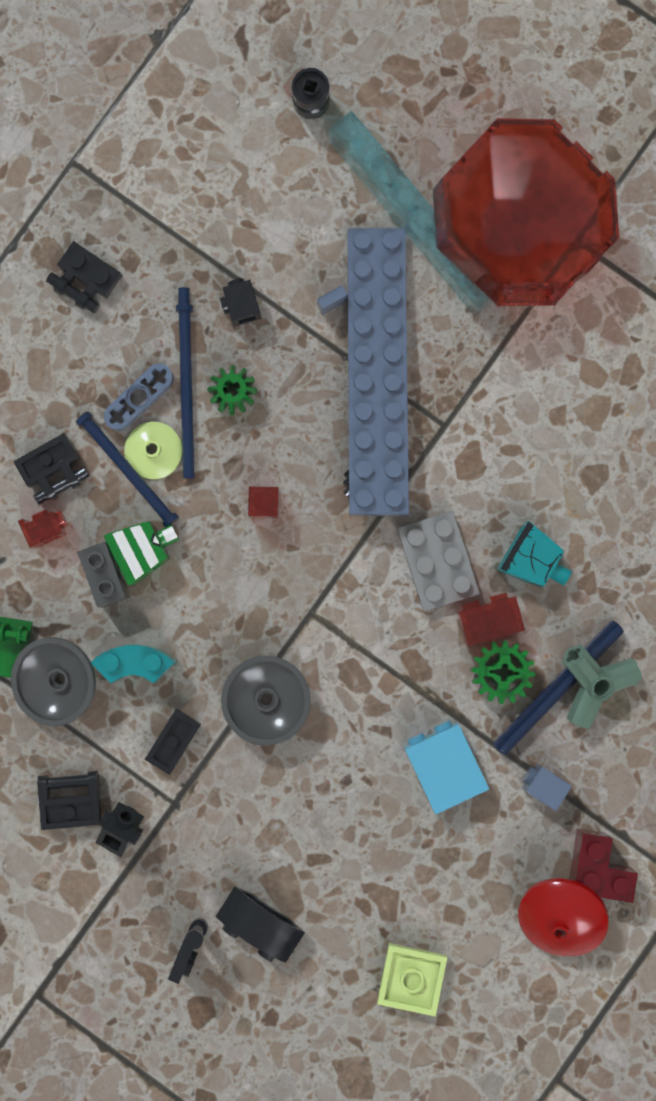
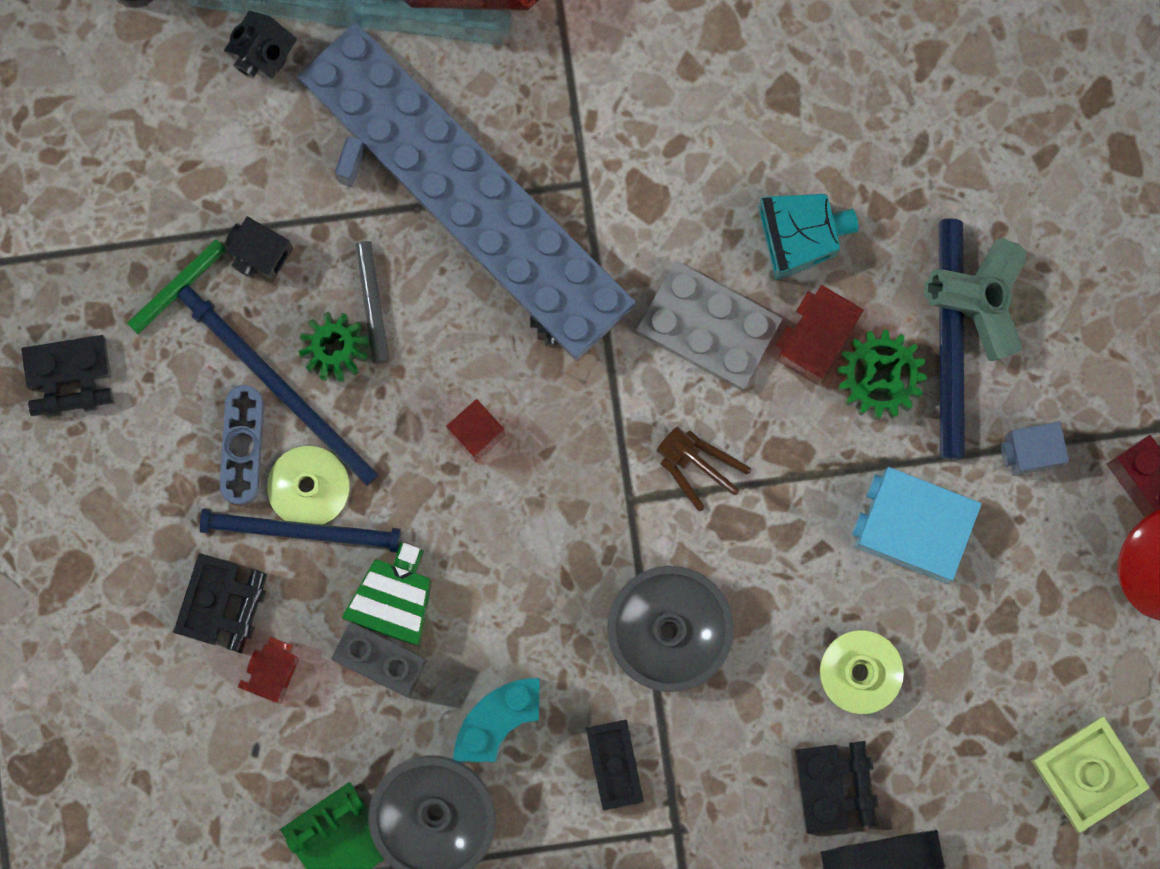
camera: 50 degrees left, 5 degrees down
(178, 282) = (175, 286): none -> green bar
(268, 853) = (822, 787): none -> black plate
(275, 385) = (372, 302): none -> dark grey bar
(342, 194) = (259, 45): none -> black brick
(347, 830) = (883, 672): none -> yellowish green dish
(360, 612) = (681, 450): none -> reddish brown plant

